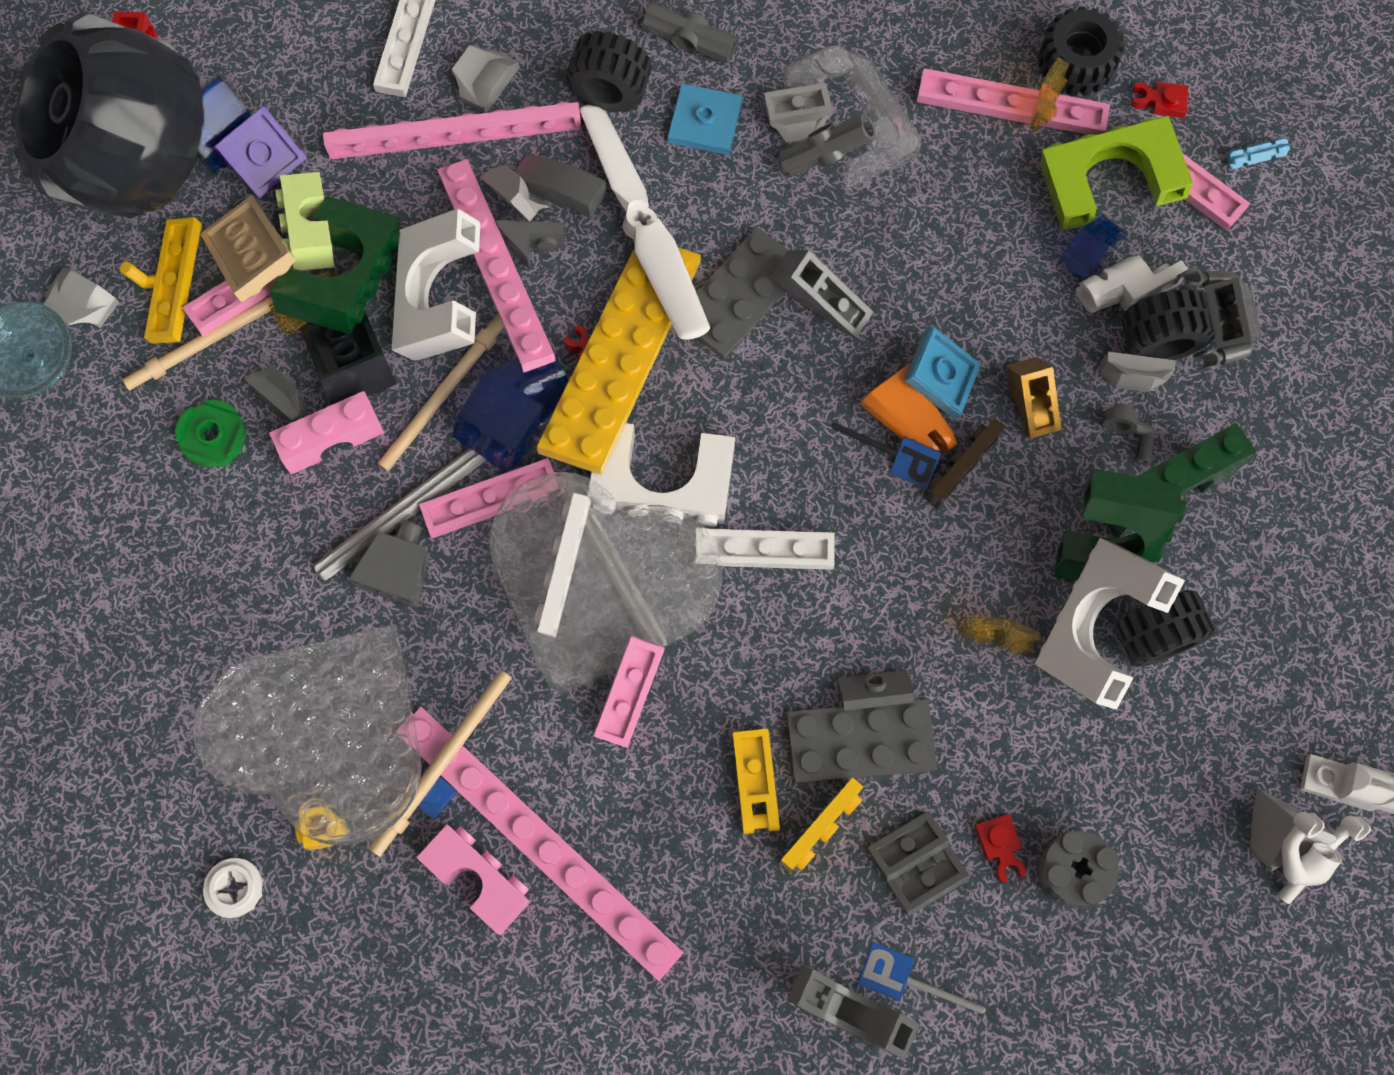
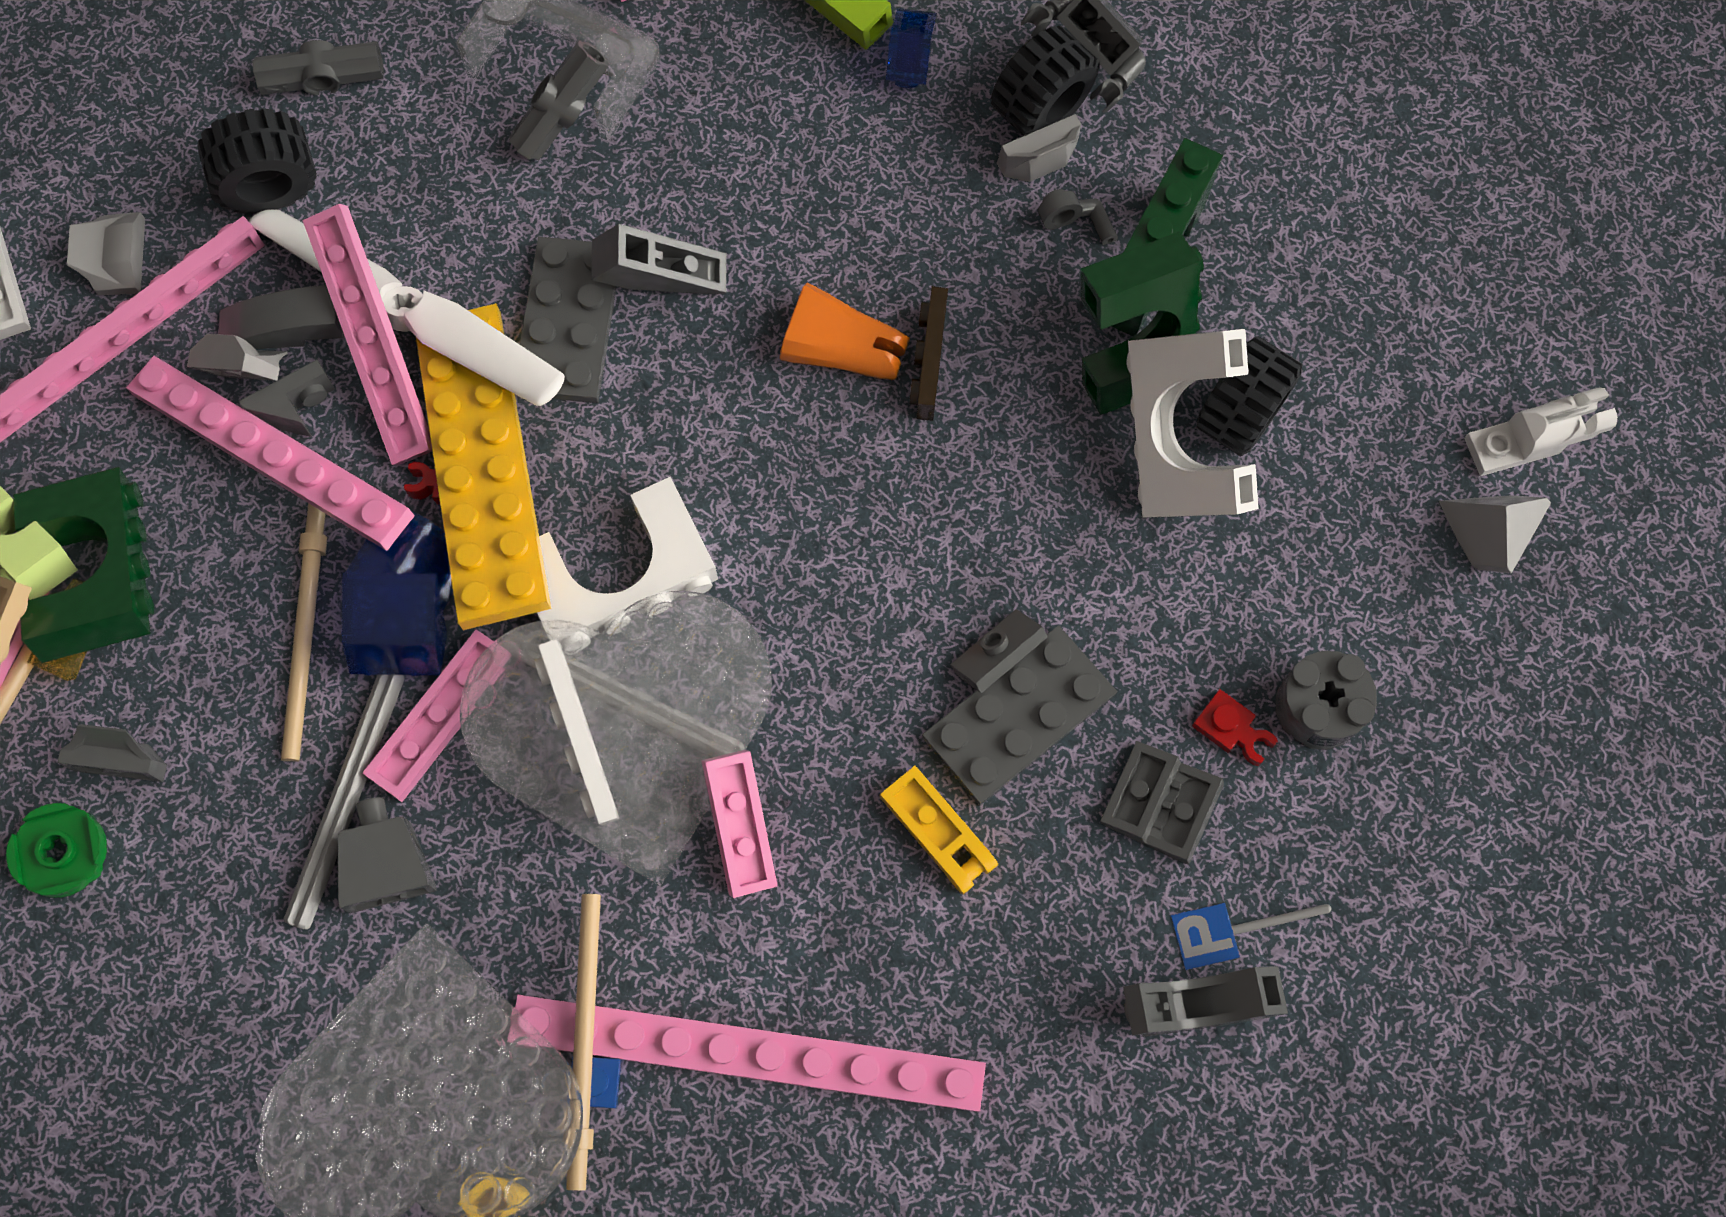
camera: 35 degrees left, 0 degrees up
(305, 439) = (179, 783): bright pink arch -> none
(348, 361) = (171, 669): black slope -> none
(421, 255) = (175, 493): white arch -> none
(453, 854) = (665, 1129): bright pink arch -> none
(605, 226) = (369, 334): none -> bright pink plate
(705, 119) = (400, 153): dark azure plate -> none
(774, 548) = (793, 569): white plate -> none
(798, 110) = (499, 84): light grey slope -> none
(823, 826) = (1041, 830): yellow plate -> none
(913, 460) = (876, 385): piece -> none
(942, 372) = (844, 271): dark azure plate -> none
(1010, 634) = (1095, 503): clear yellow slope -> none
(1035, 395) = (955, 236): pearl gold arch -> none
(1127, 283) = (972, 65): white plate -> none
(1321, 860) = (1551, 530): white piece -> none

